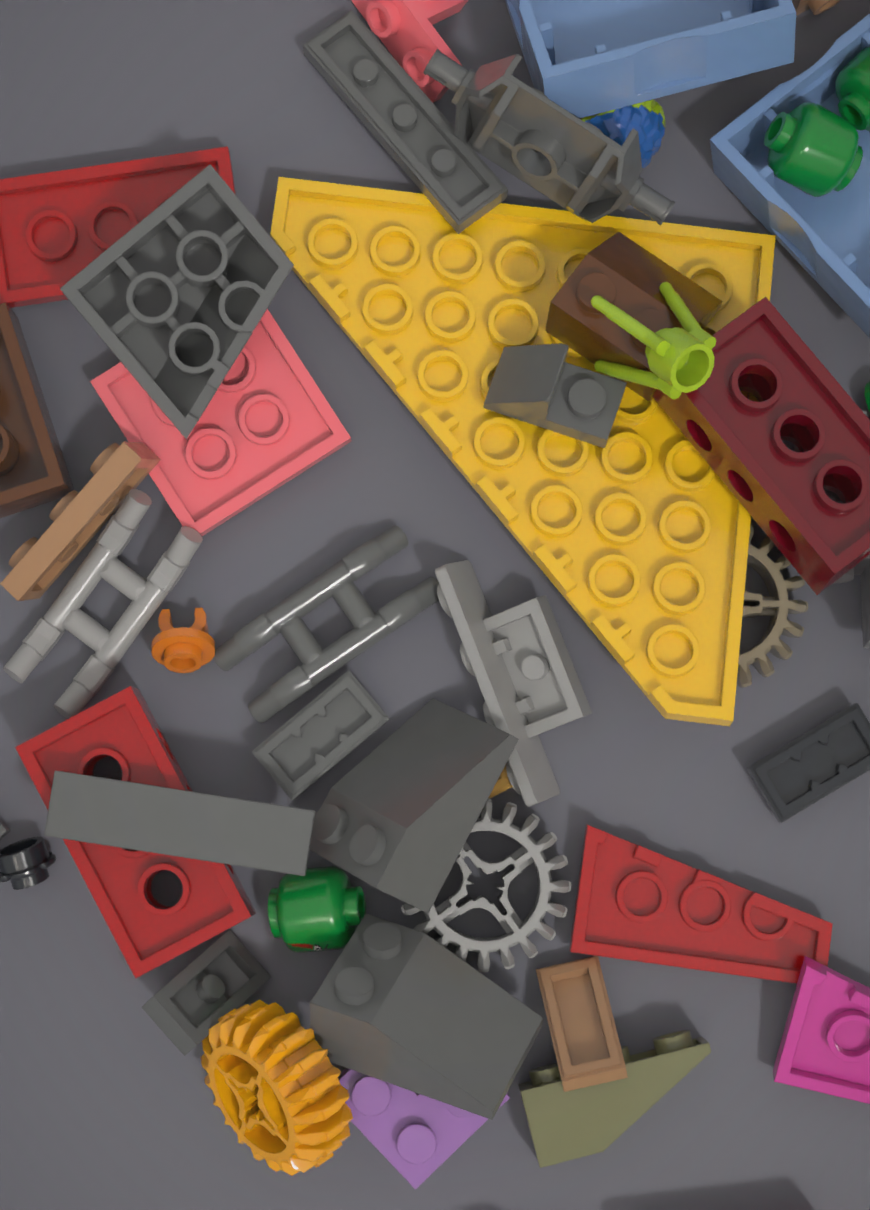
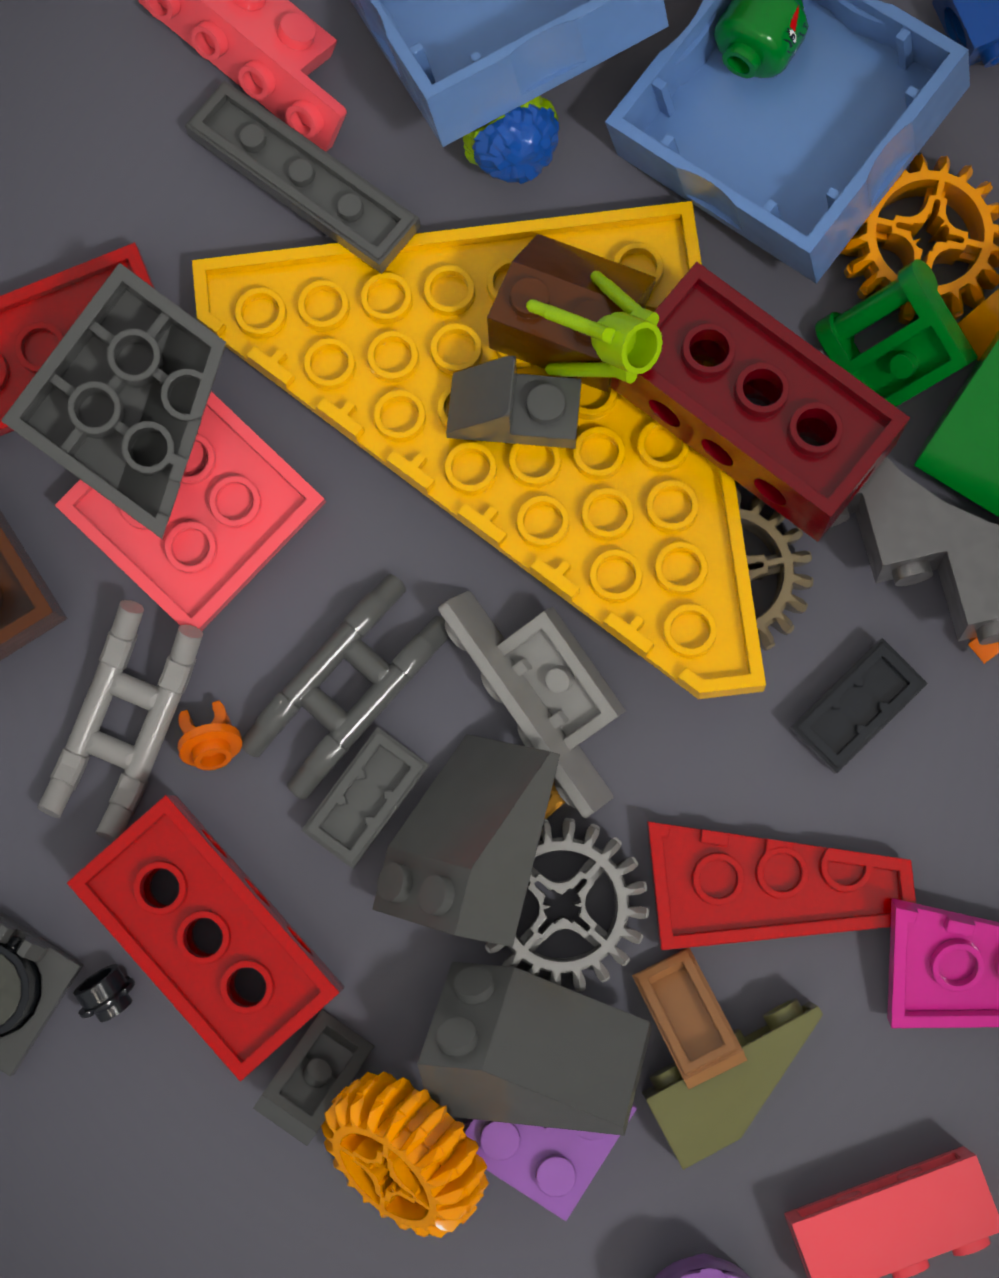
camera: 10 degrees left, 0 degrees up
(78, 519) = (75, 643): medium nougat plate -> none
(180, 823) = (246, 918): dark grey tile -> none
(315, 910) = (401, 969): green head -> none
(510, 119) = (404, 148): dark grey plate -> none
(813, 149) = (708, 107): green head -> none

